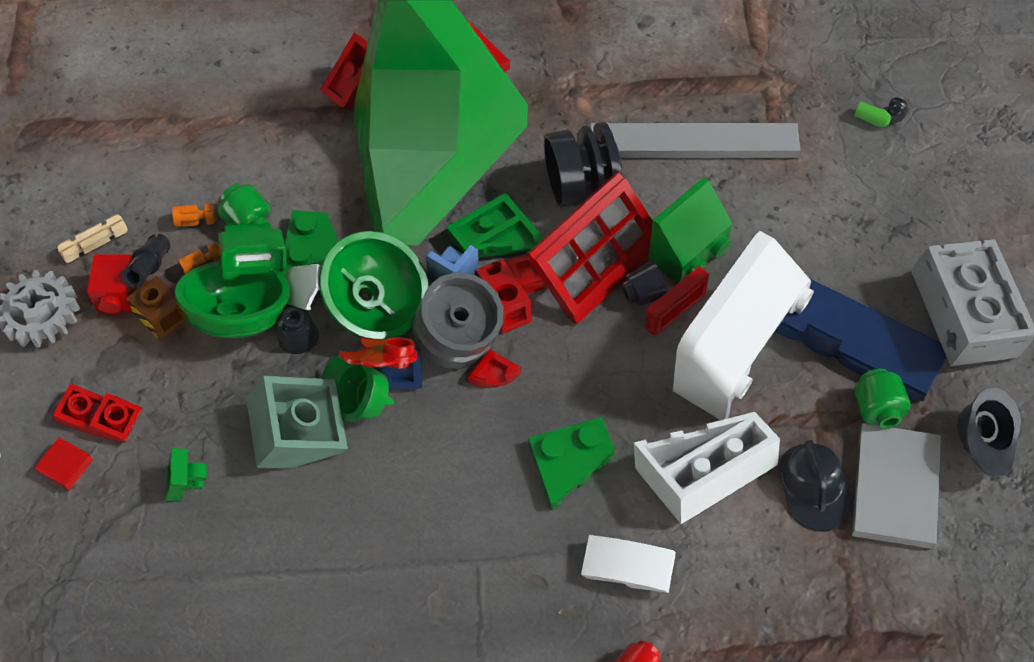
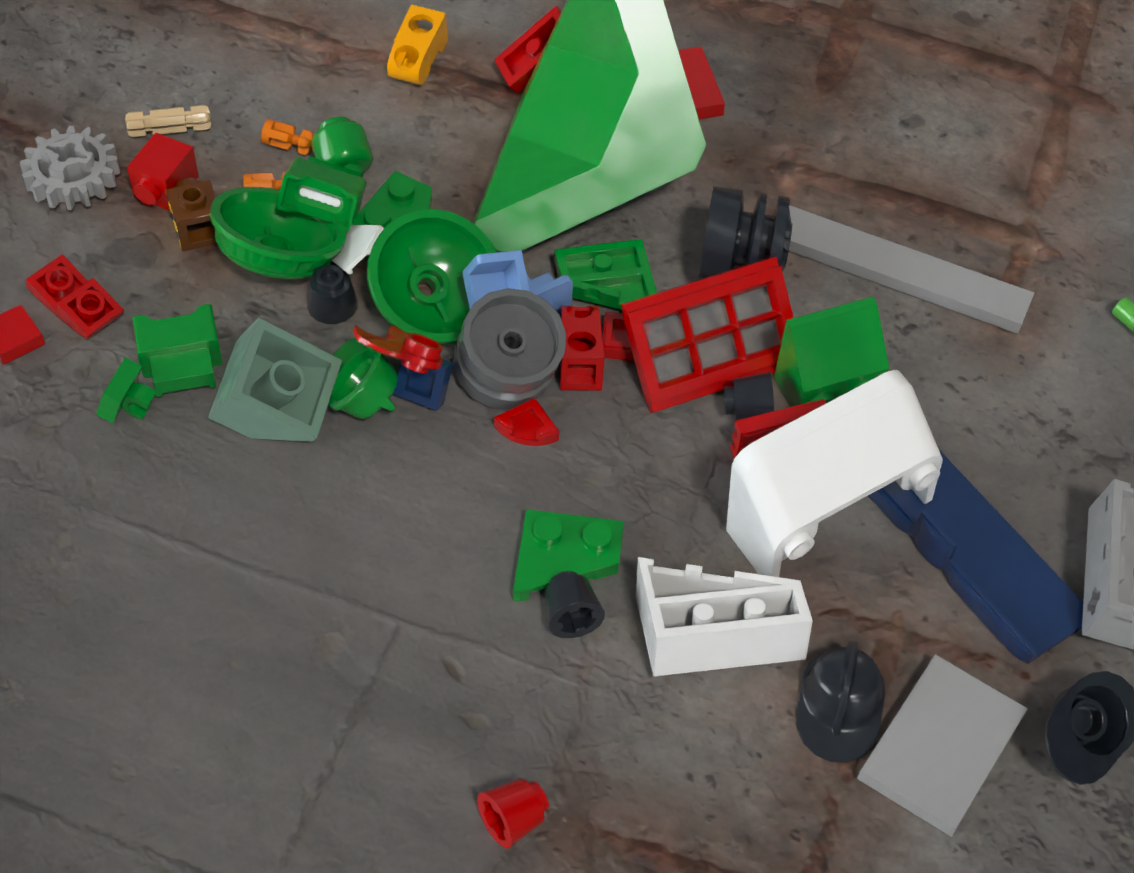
camera: 20 degrees right, 5 degrees down
(146, 260) = (207, 160): black pin -> none
(205, 423) = (178, 350): none -> green piece
(256, 101) = (417, 47): none -> light orange leg
(421, 271) = (493, 273): none -> medium blue panel
(599, 496) = (572, 606): none -> black hat
(628, 563) = (567, 691): white slope -> none
(881, 398) = (971, 634): green head -> none

